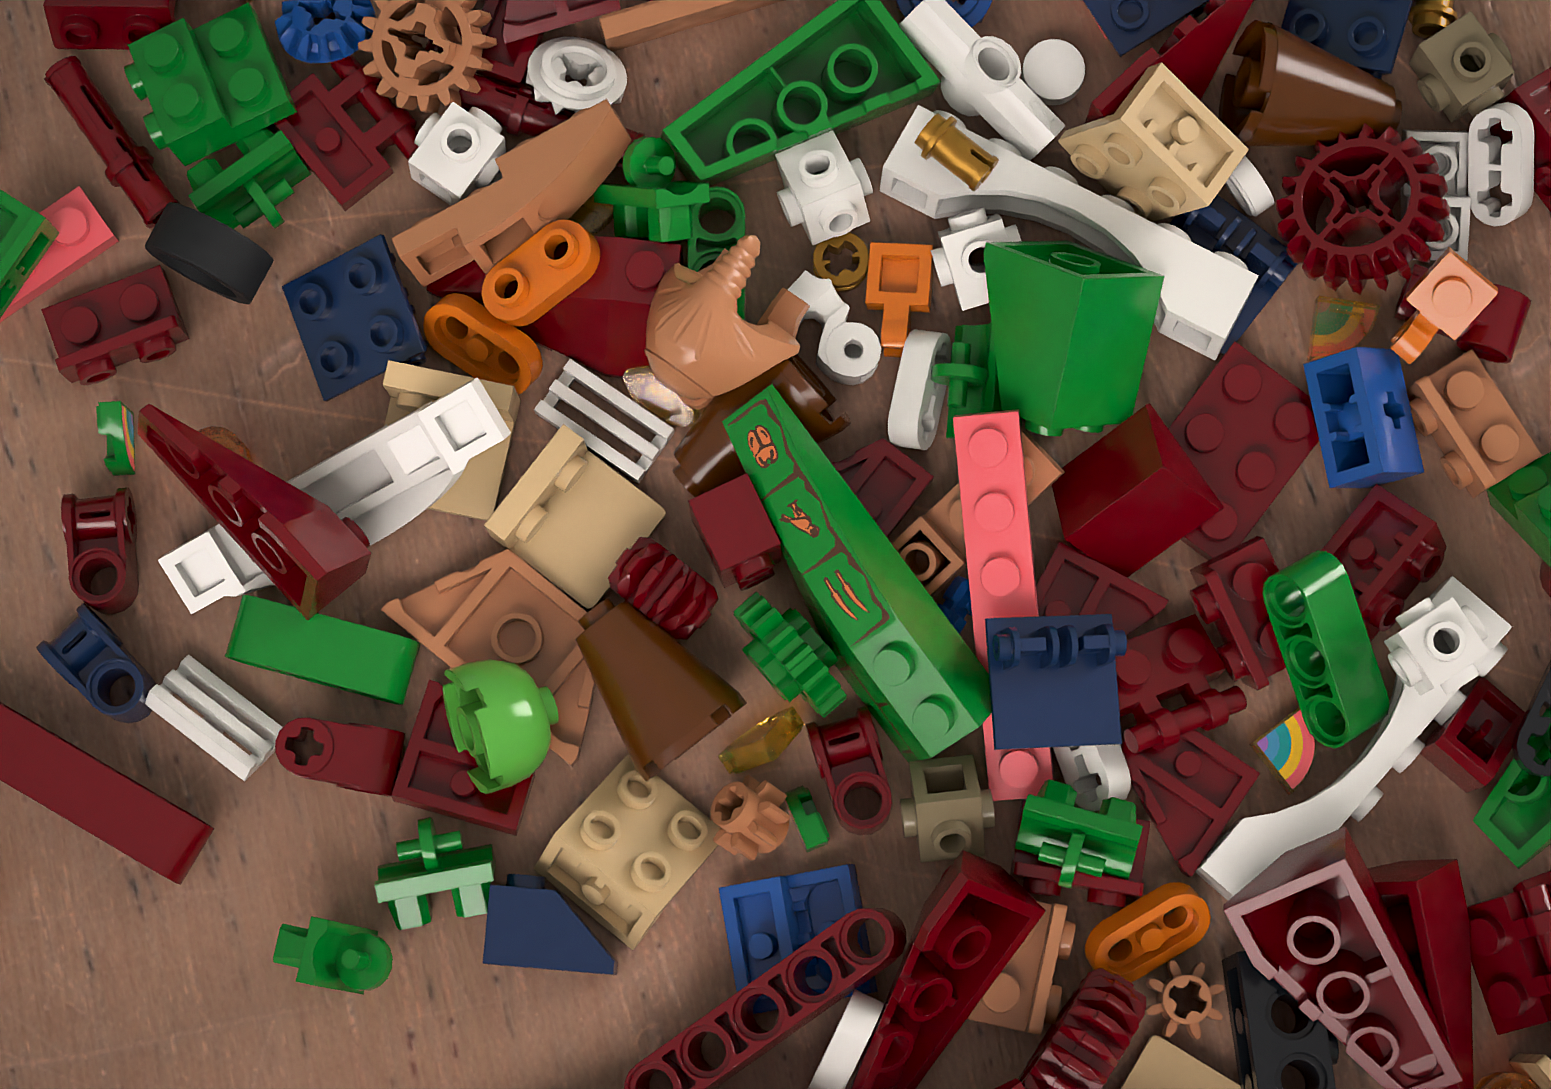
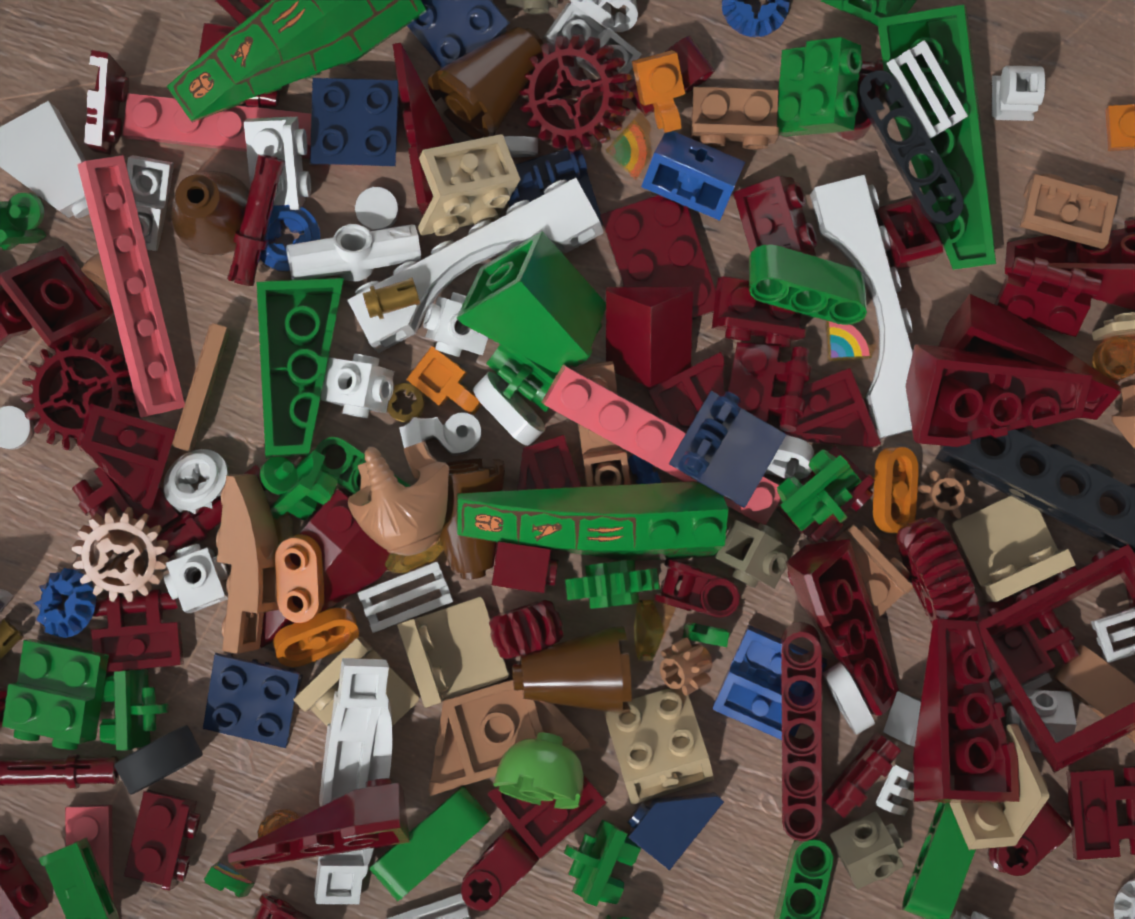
camera: 55 degrees left, 5 degrees up
(1419, 661) = (841, 237): white brick -> none

